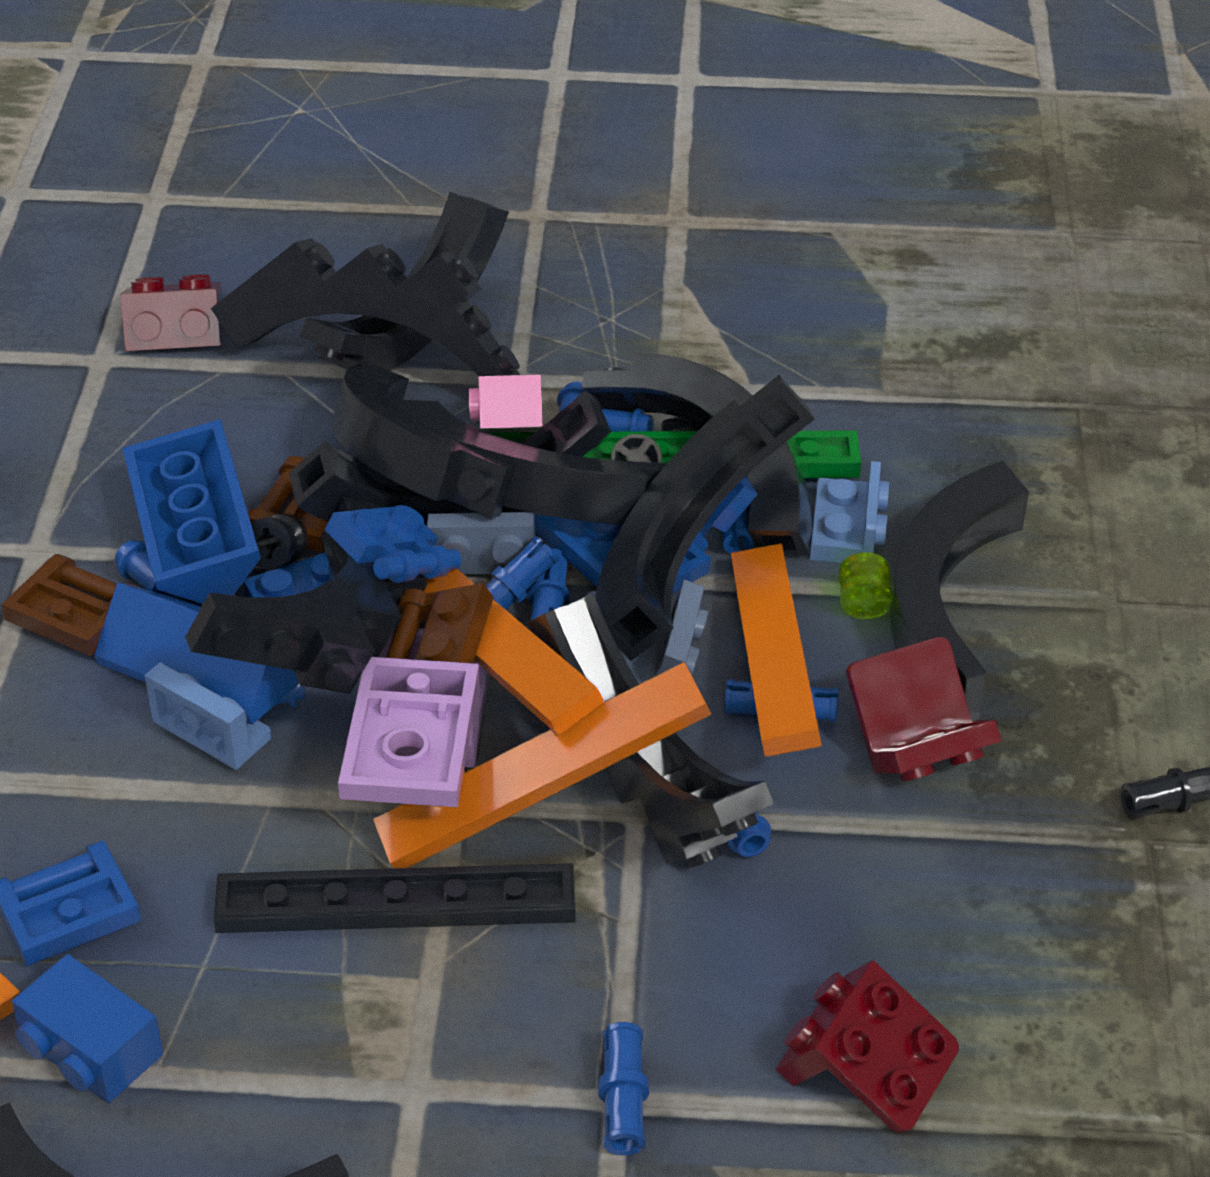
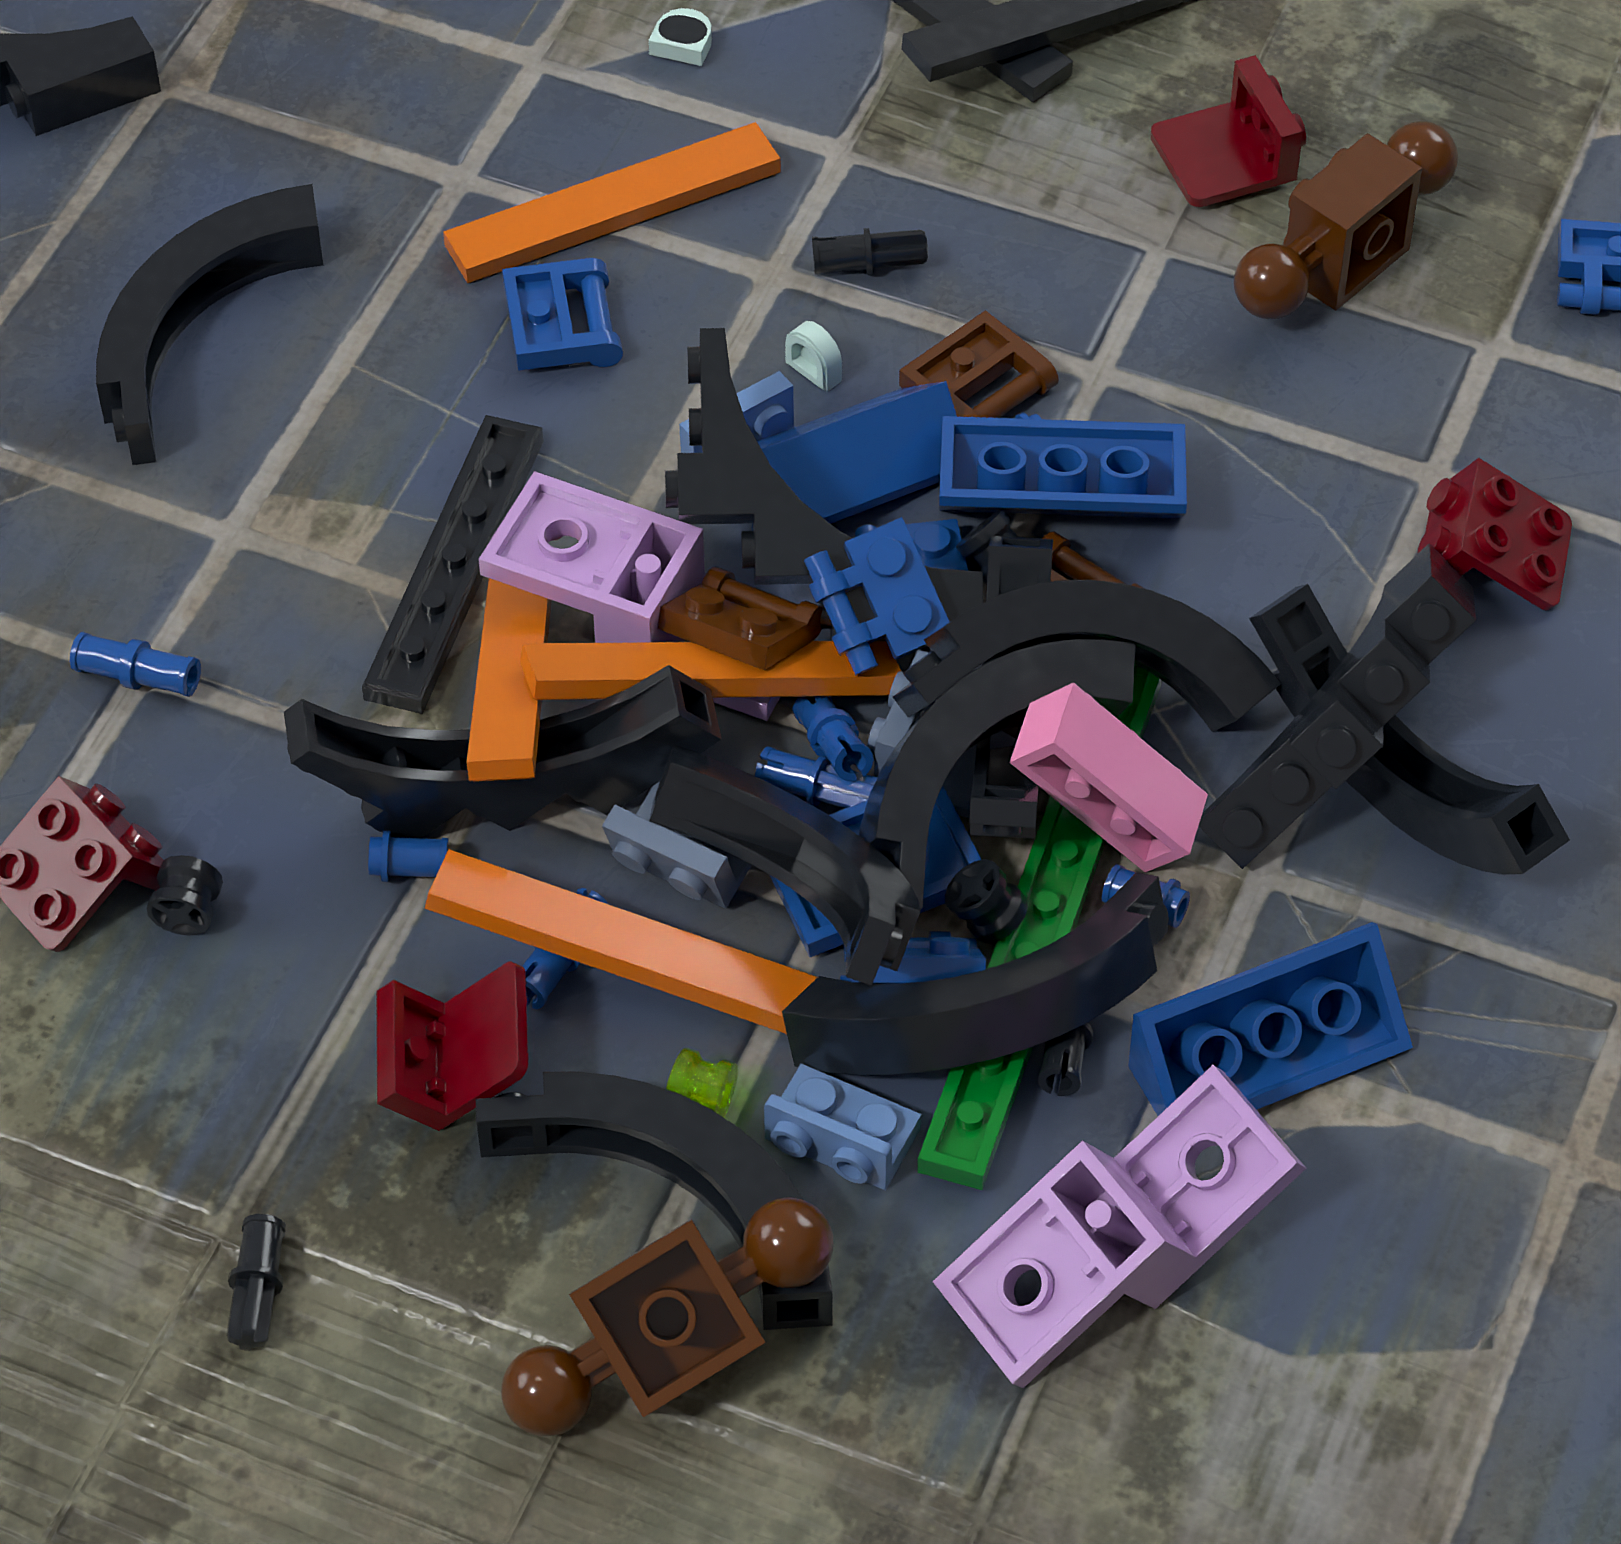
camera: 110 degrees right, 10 degrees up
(75, 708) = (814, 355): none -> light aqua tile
(86, 1029) = (396, 304): blue brick -> none
(643, 327) = (1276, 1024): none -> blue slope
(862, 944) = (184, 895): none -> black wheel
(888, 348) = (1118, 1226): none -> lavender bracket
(1083, 525) = (667, 1317): none -> reddish brown brick

